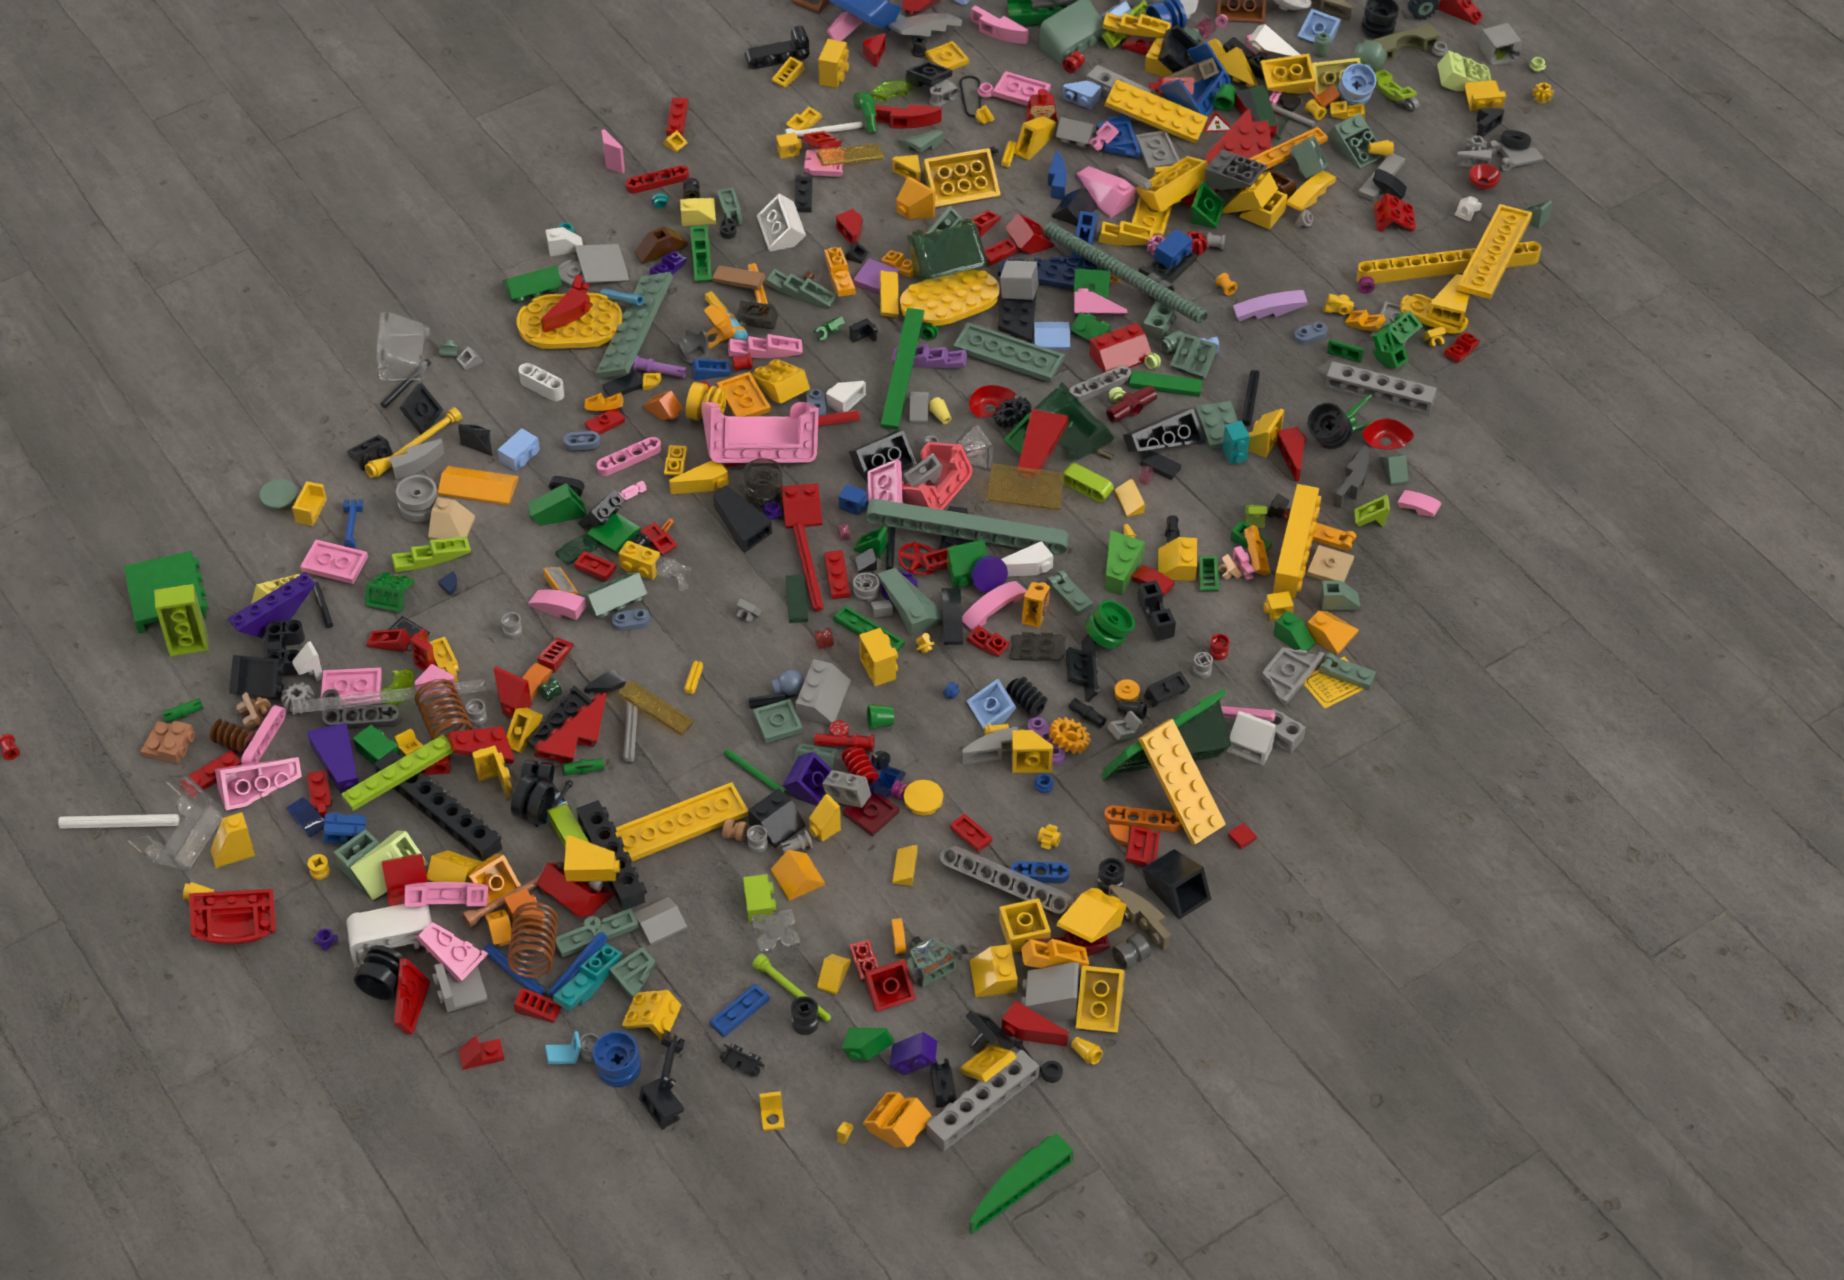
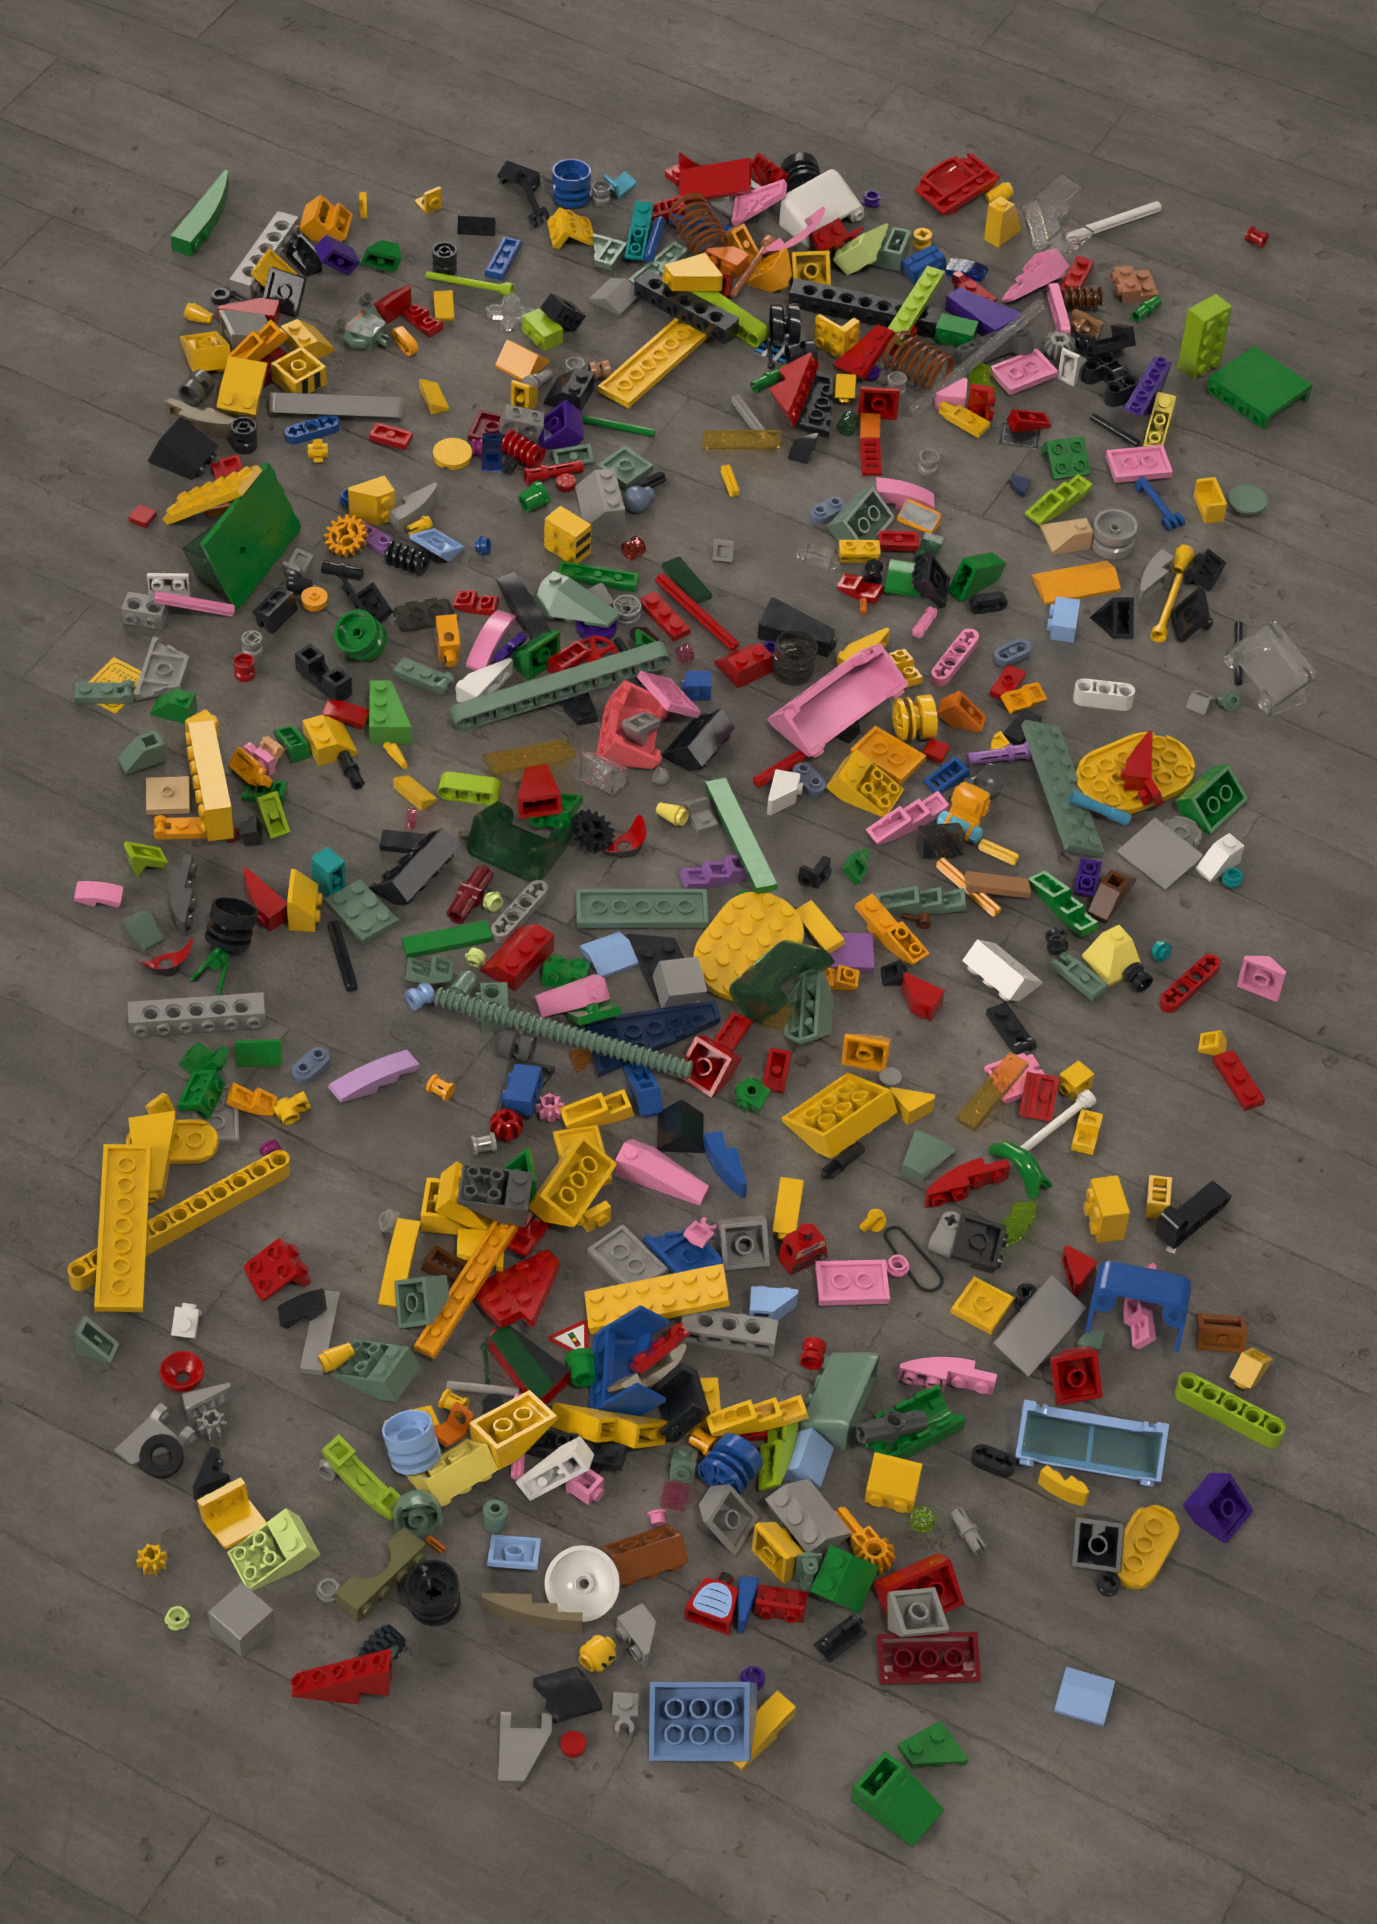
camera: 150 degrees right, 0 degrees up
(407, 742) = (926, 336): yellow bracket -> none
(472, 997) = (716, 180): none -> red tile
(731, 894) = (563, 312): none -> black brick
(742, 362) = (918, 791): red bush -> none
(924, 643) = (533, 575): yellow plate -> none
(1008, 154) = (806, 1174): yellow axle -> none
(1014, 203) = (751, 1095): none -> green brick
(1134, 176) = (628, 1181): light grey axle -> none
(1331, 631) = (137, 720): light orange slope -> none
(1462, 348) = (123, 1107): red slope -> none

